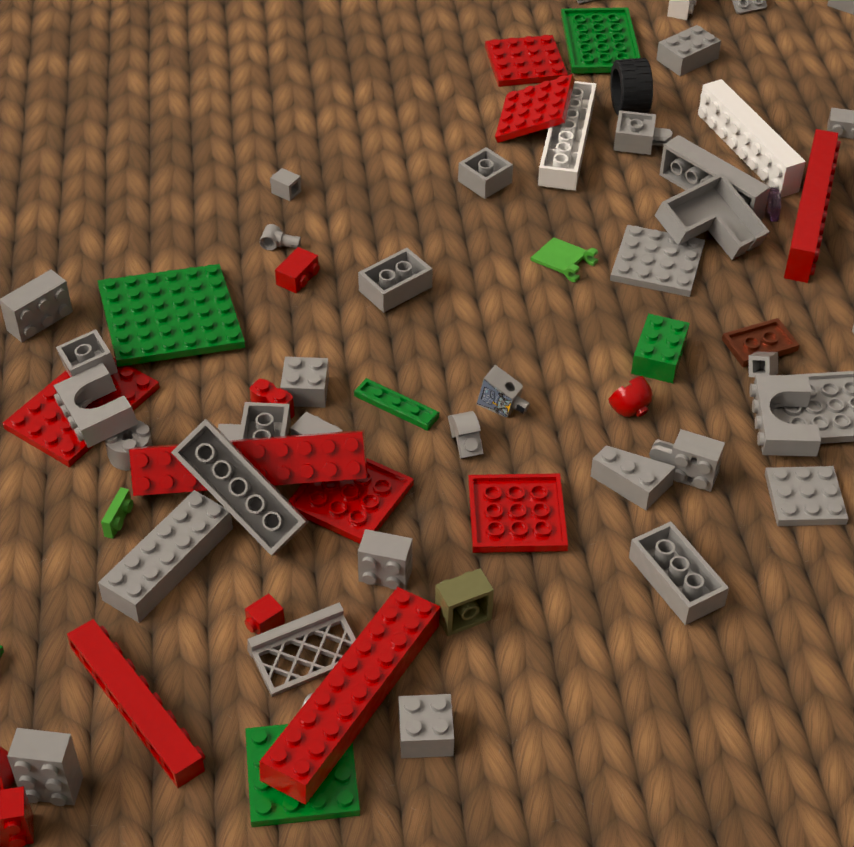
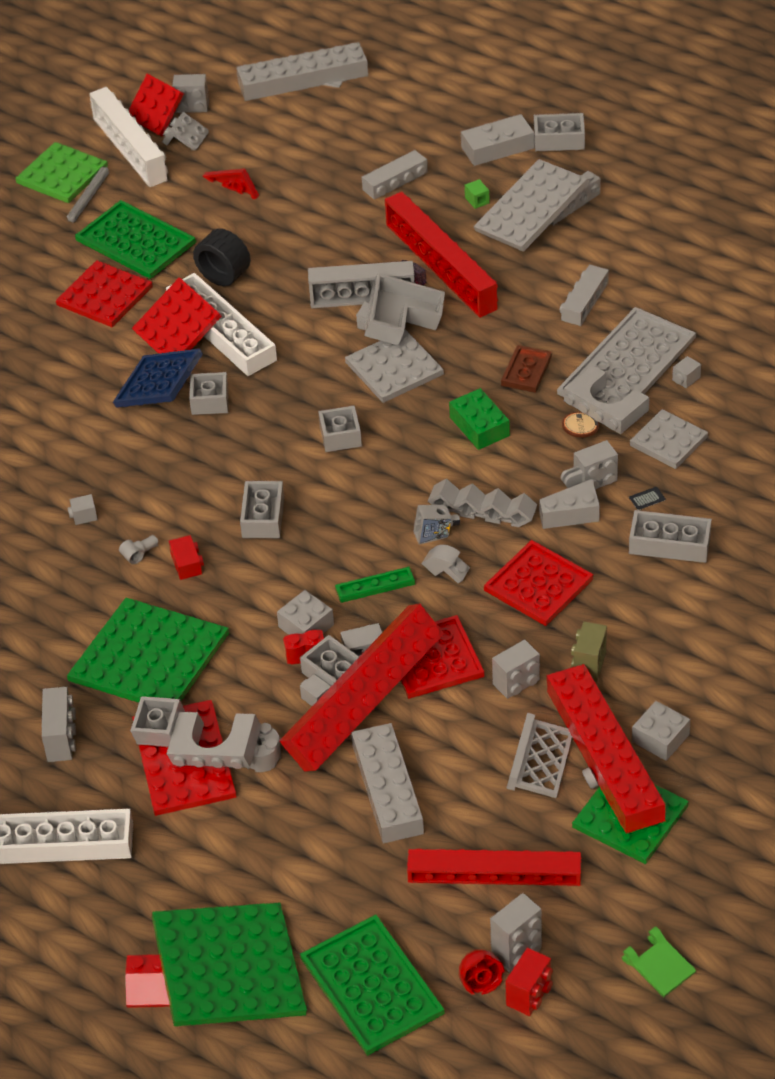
camera: 45 degrees left, 0 degrees up
(116, 513) = (317, 790): bright green plate -> none
(239, 487) = (388, 699): light grey brick -> none
(264, 615) = (492, 760): red brick -> none
(464, 135) = (157, 378): none -> dark blue plate
(539, 269) = (340, 428): none -> light grey brick
(559, 407) = (492, 506): none -> light grey brick
(564, 257) = (336, 402): bright green flag -> none
(633, 398) = (509, 461): red cylinder -> none
(638, 133) = (265, 288): light grey brick -> none
(688, 50) = (208, 202): light grey brick -> none
(715, 527) = (647, 498): none -> black sticker
(731, 50) = (235, 180): none -> red wing
(737, 419) = (579, 425): none -> piece
(751, 138) = (341, 236): white brick -> none
(763, 363) = (551, 379): light grey brick -> none

